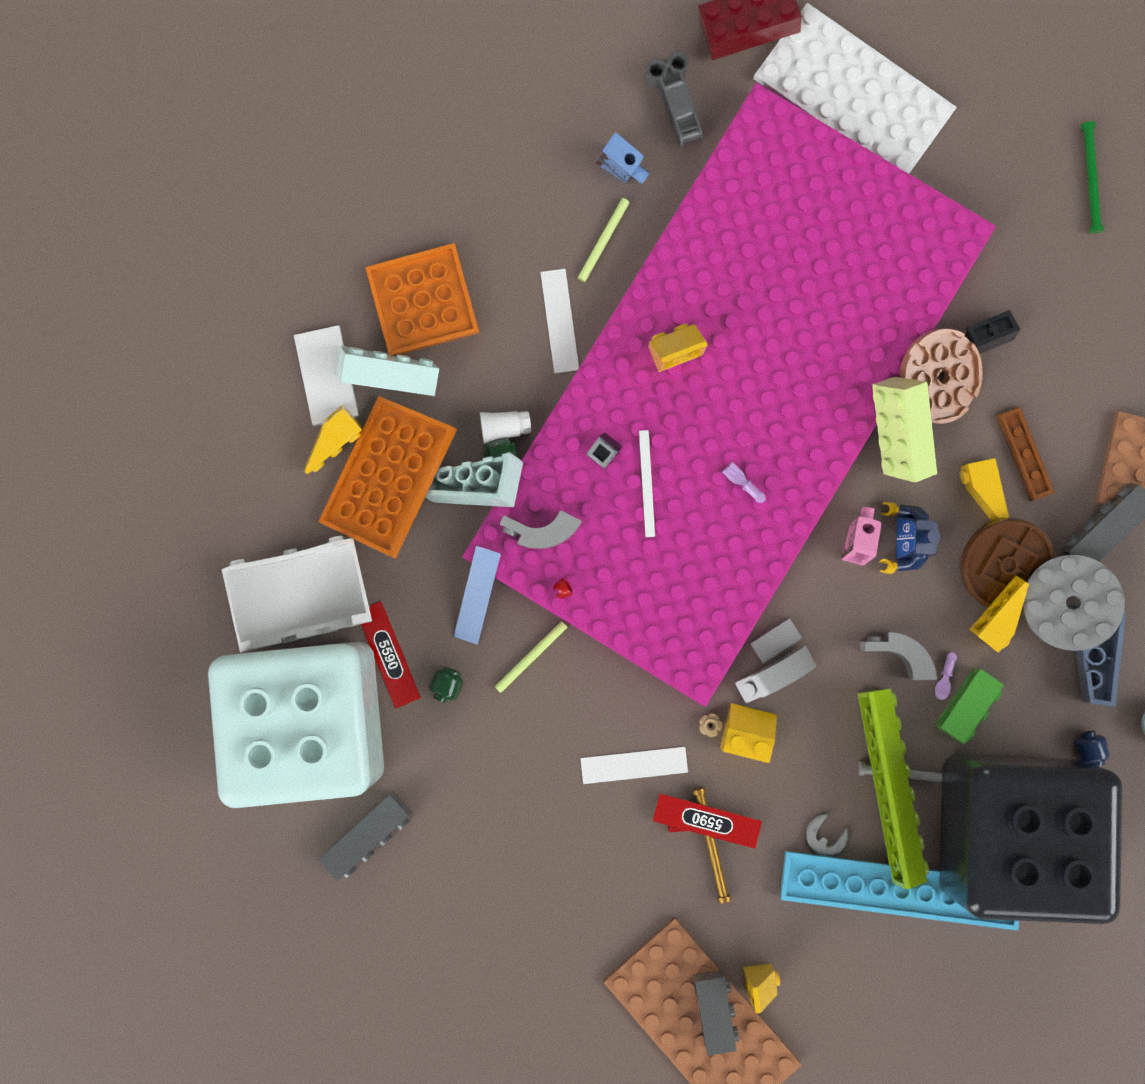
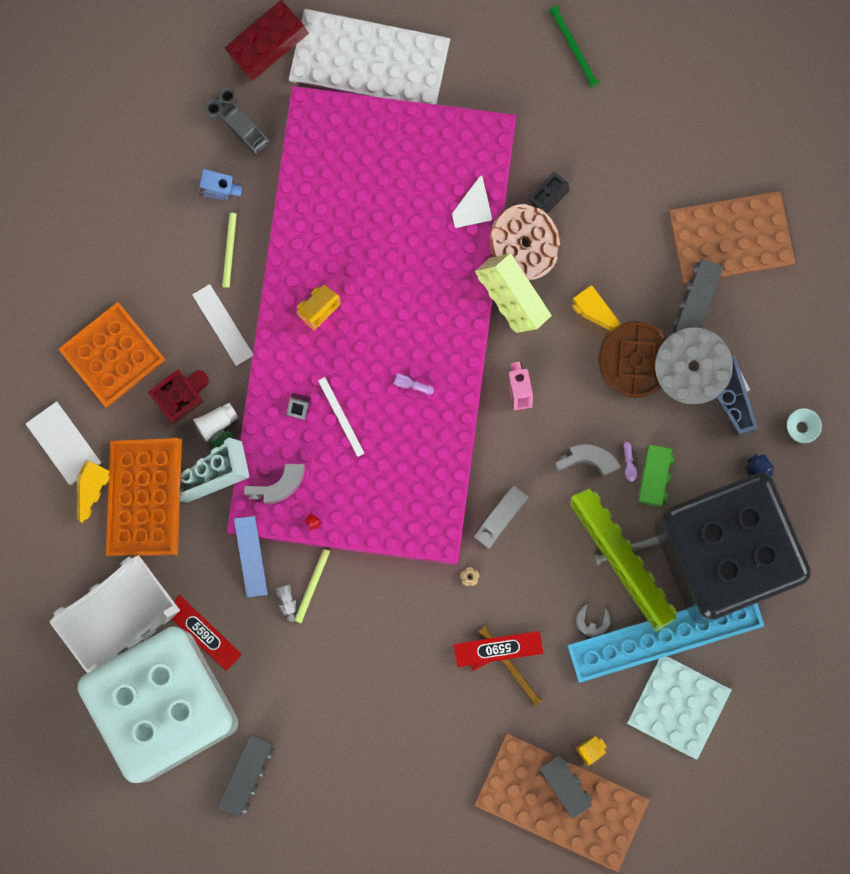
camera: 25 degrees left, 5 degrees down
(386, 371) = (108, 419): light aqua wedge -> none
(446, 684) = (256, 634): dark green head -> none
(477, 380) = (181, 394): none -> dark red brick
(494, 667) = (287, 605): none -> light grey piece
(634, 765) = (426, 633): white sticker -> none
(749, 733) = (500, 569): yellow slope -> none
(775, 640) = (490, 492): light grey tile -> none
(880, 975) = (679, 706): none -> light aqua plate
(902, 310) = (473, 207): none -> white sticker
(915, 538) = (559, 371): dark blue torso -> none
(1001, 618) = (648, 402): yellow slope -> none
(1025, 454) = (615, 271): dark orange tile -> none

